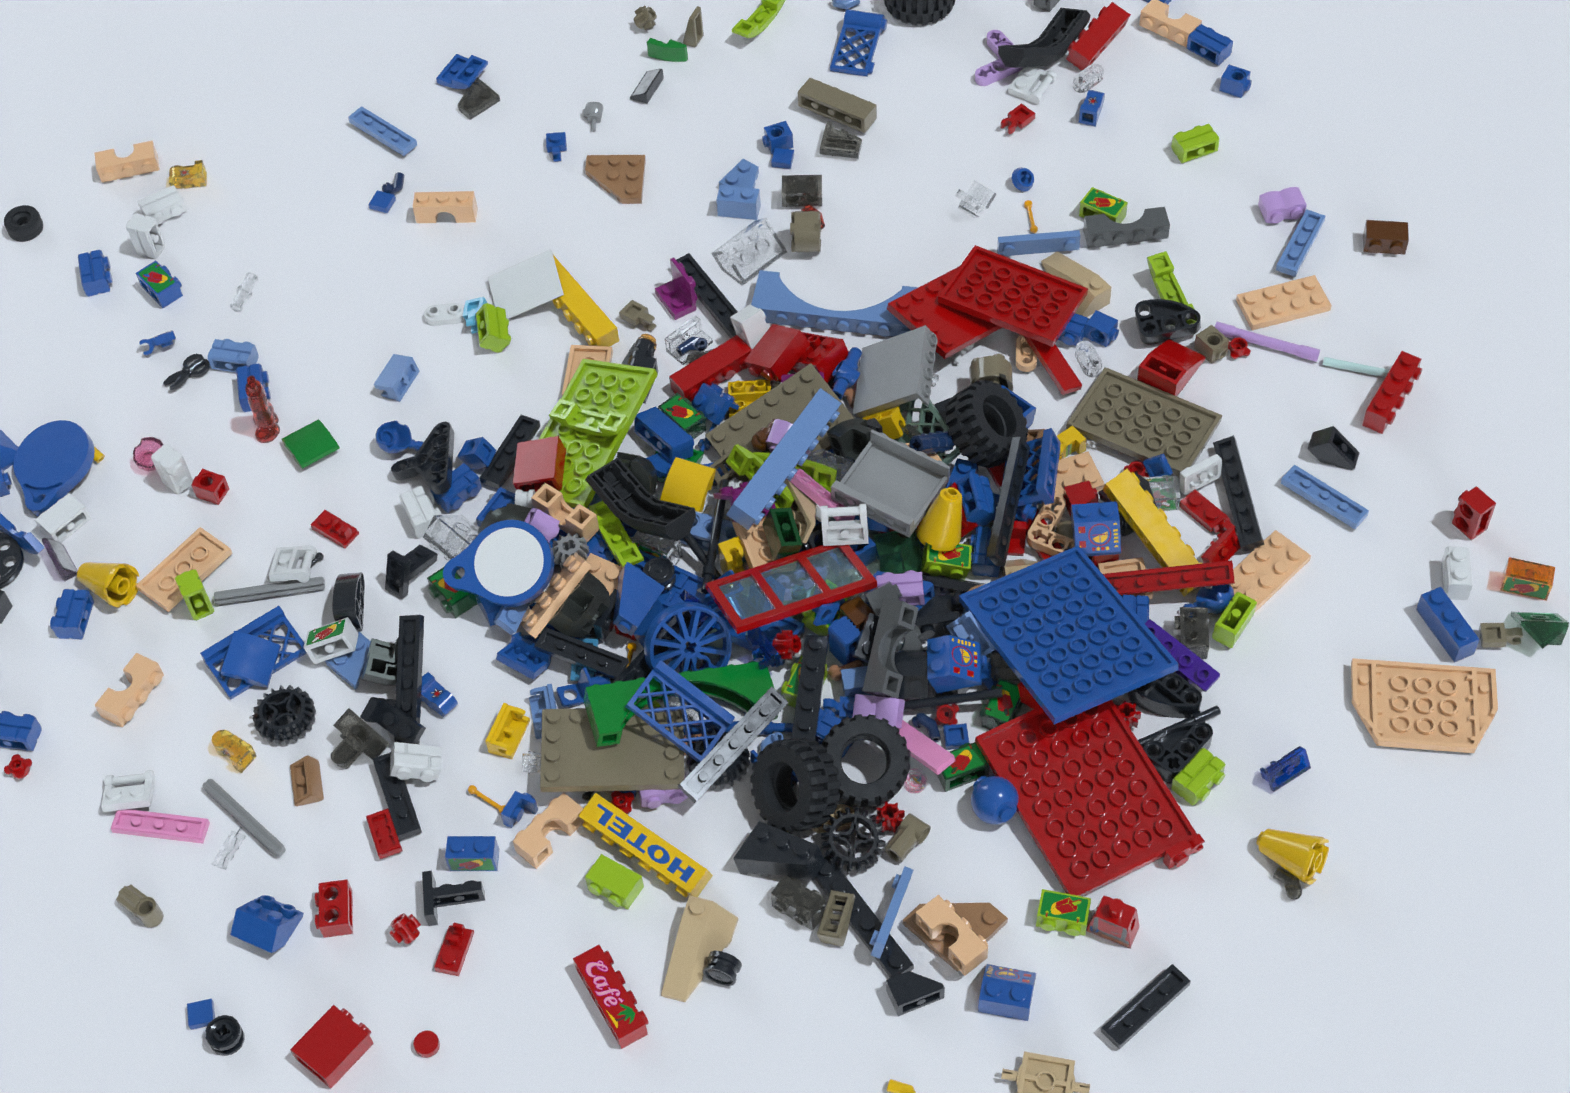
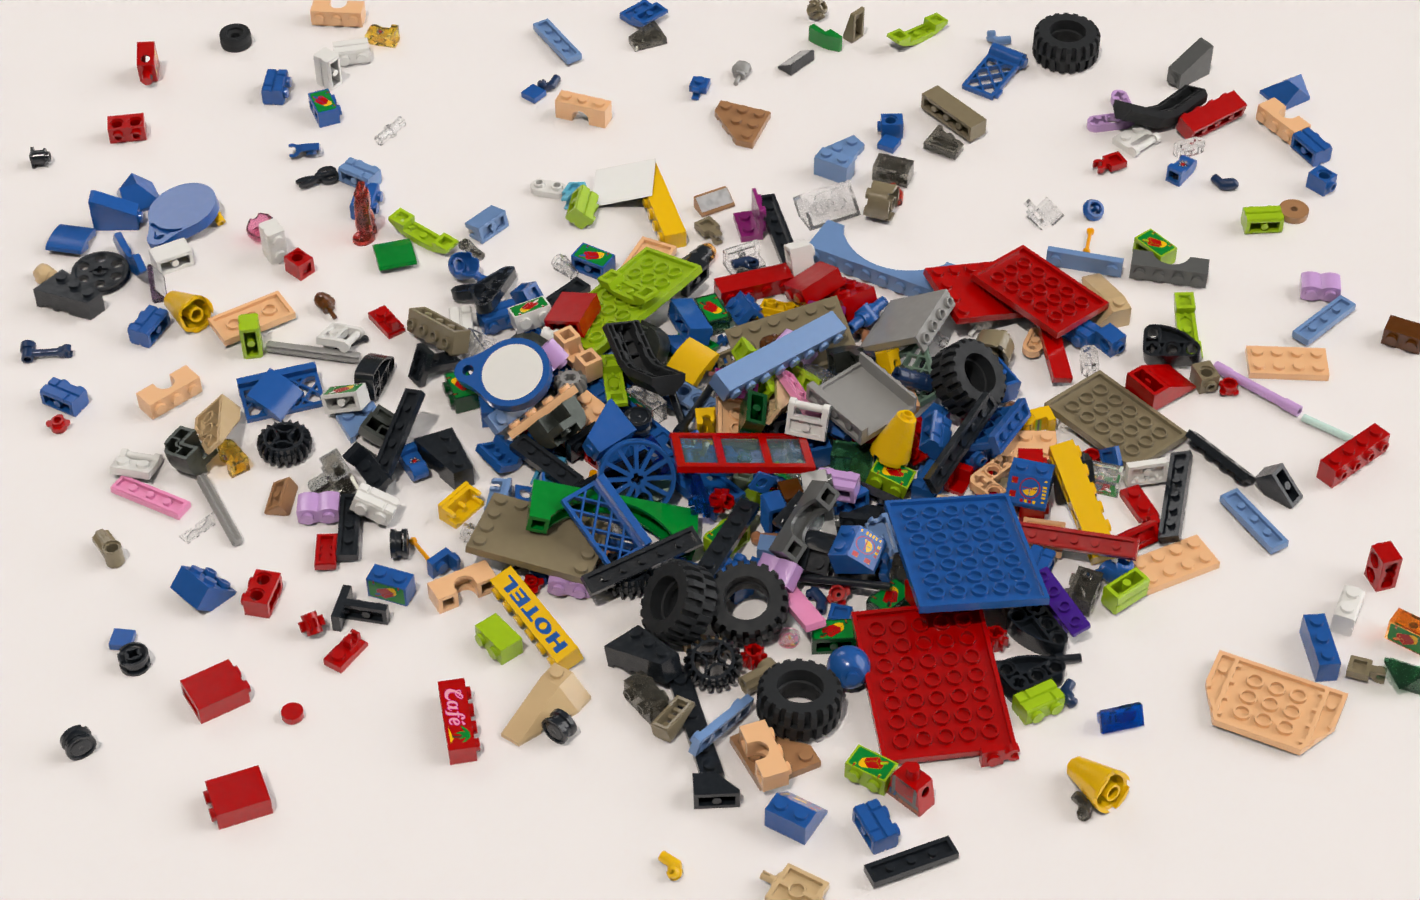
camera: 15 degrees right, 10 degrees down
(183, 761) = (186, 451): none -> pearl dark grey brick
(201, 716) = (216, 422): none -> tan wedge
(259, 526) = (325, 303): none -> reddish brown piece
(330, 411) = (420, 235): none -> lime slope
(354, 782) = (318, 507): none -> lavender brick
(387, 410) = (468, 246): none -> clear smoke arm
(400, 527) = (438, 330): none -> dark tan brick
(458, 800) = (396, 543): none -> black wheel
(470, 677) = (446, 456): none -> black wedge
(492, 478) = (529, 314): none -> white brick
(501, 405) = (564, 266): none -> clear cone
(530, 391) = (592, 261): none -> blue brick
(628, 280) = (713, 201): none -> flat silver slope
(961, 830) = (802, 680): none -> black tyre
(1094, 977) = (875, 826): none -> blue brick
(1140, 111) = (1226, 183): none -> dark blue arm
(1219, 751) = (1067, 689): none -> dark blue arm
(1222, 123) = (1294, 211): none -> medium nougat piece
(1256, 430) = (1226, 462): none -> black plate

